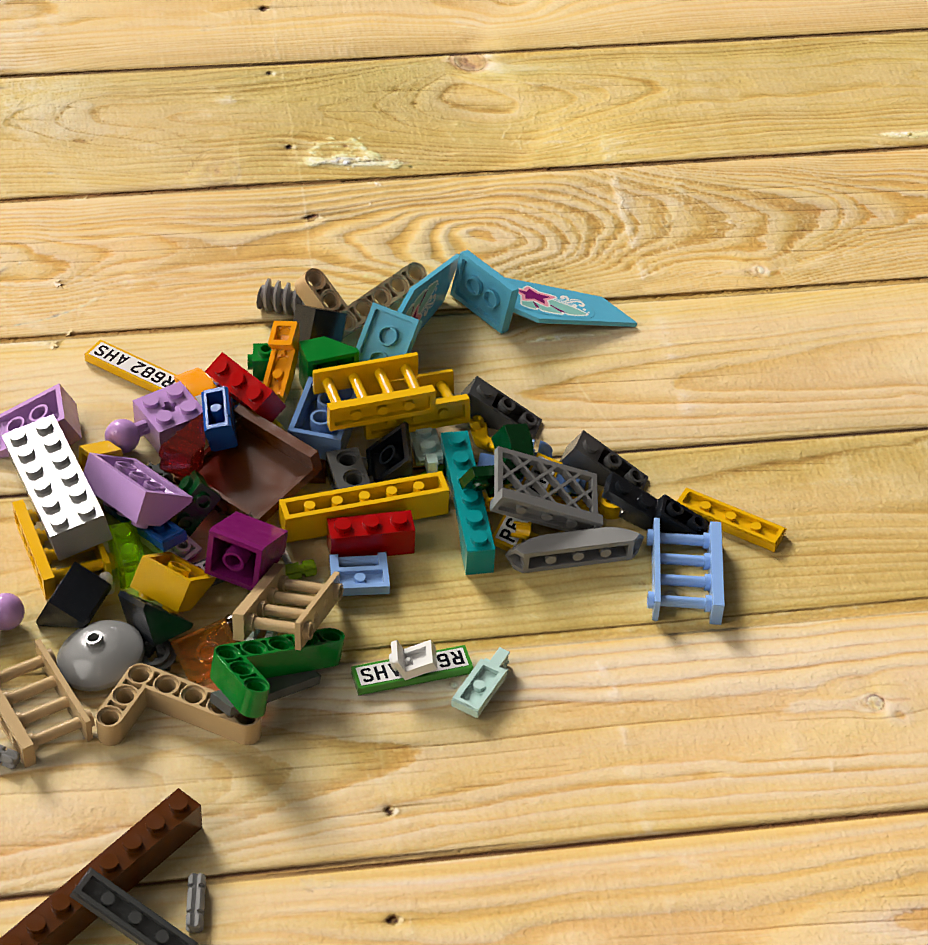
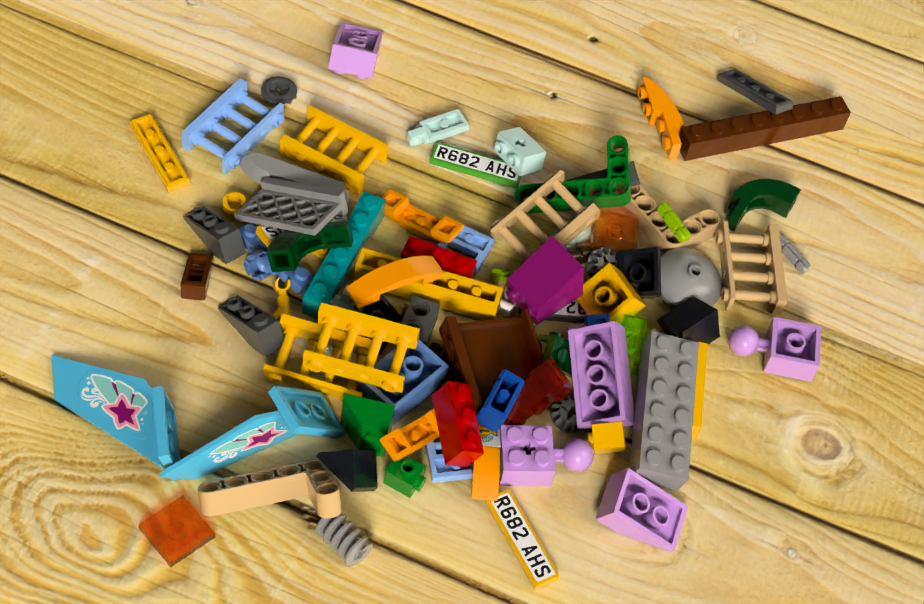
camera: 155 degrees left, 10 degrees up
(60, 798) = (761, 194): none -> dark green arch
(147, 679) = (673, 222): none -> lime axle
(195, 902) = (706, 98): light grey axle -> none
(202, 615) = (597, 259): none -> dark grey gear
(241, 842) = (662, 113): none -> light orange slope
(358, 690) = (519, 151): none -> light aqua brick
(386, 467) = (392, 276): none -> light orange slope
(414, 659) = (478, 153): white bracket -> none
(419, 251) = (176, 531): none -> clear orange tile
(423, 576) = (419, 221): none -> light orange slope
(568, 577) = (317, 162): none -> yellow fence
(583, 414) = (196, 278): none -> reddish brown slope
(641, 508) = (213, 172): black slope -> none
(648, 724) = (355, 50): none -> lavender slope
(681, 628) = (286, 87): none -> dark grey gear

